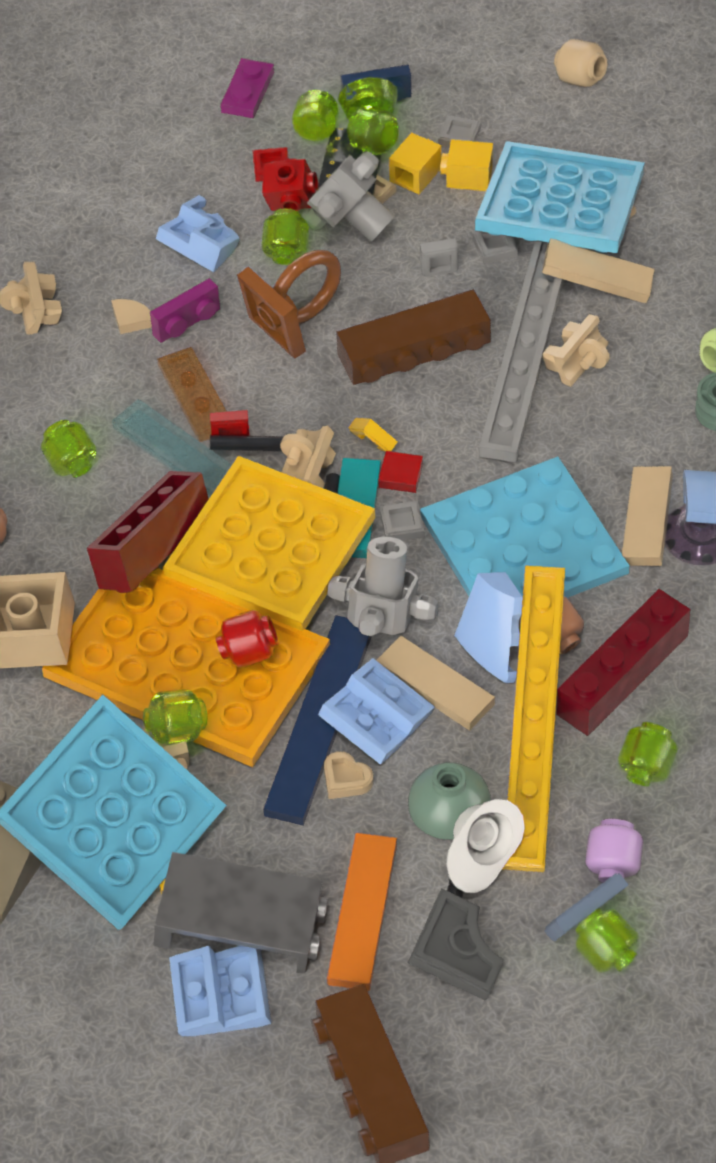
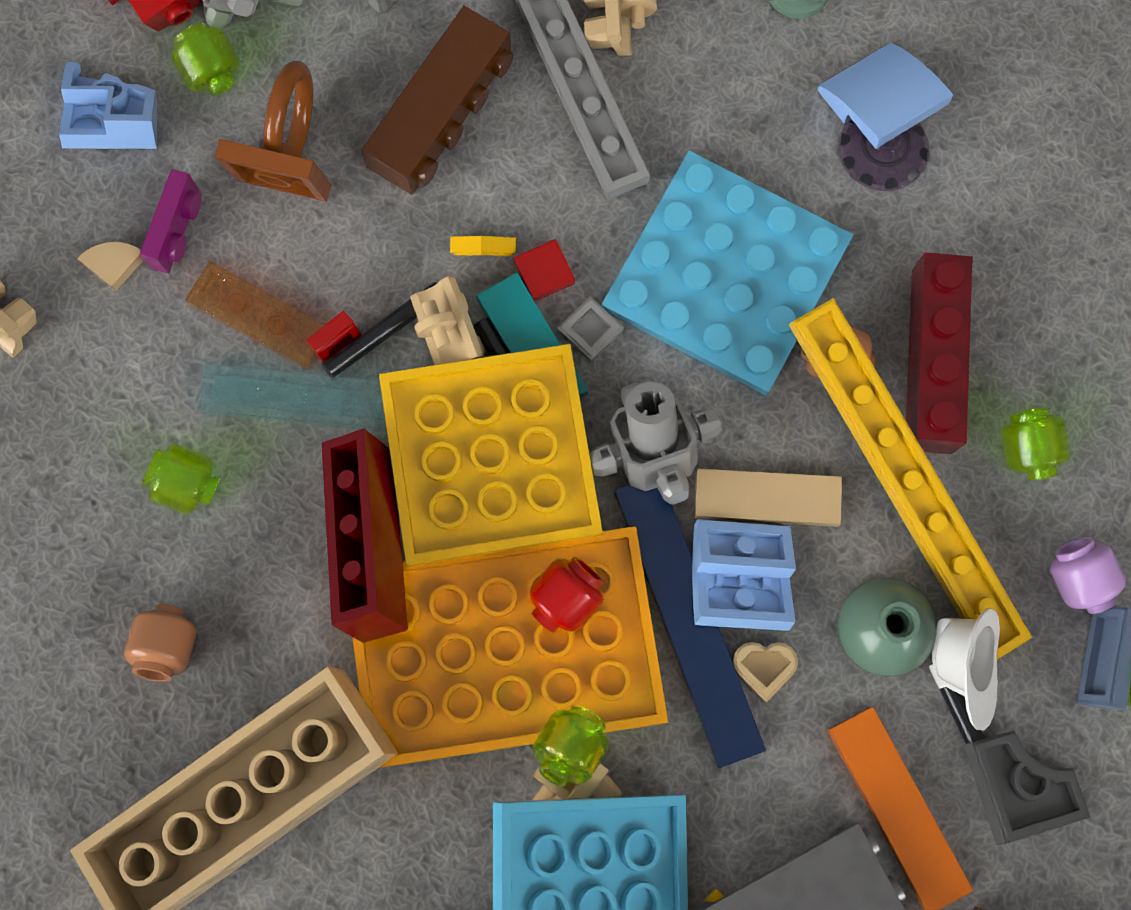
camera: 40 degrees left, 25 degrees up
(492, 623) = (791, 402): light blue slope -> none
(647, 515) = (824, 162): tan tile -> none

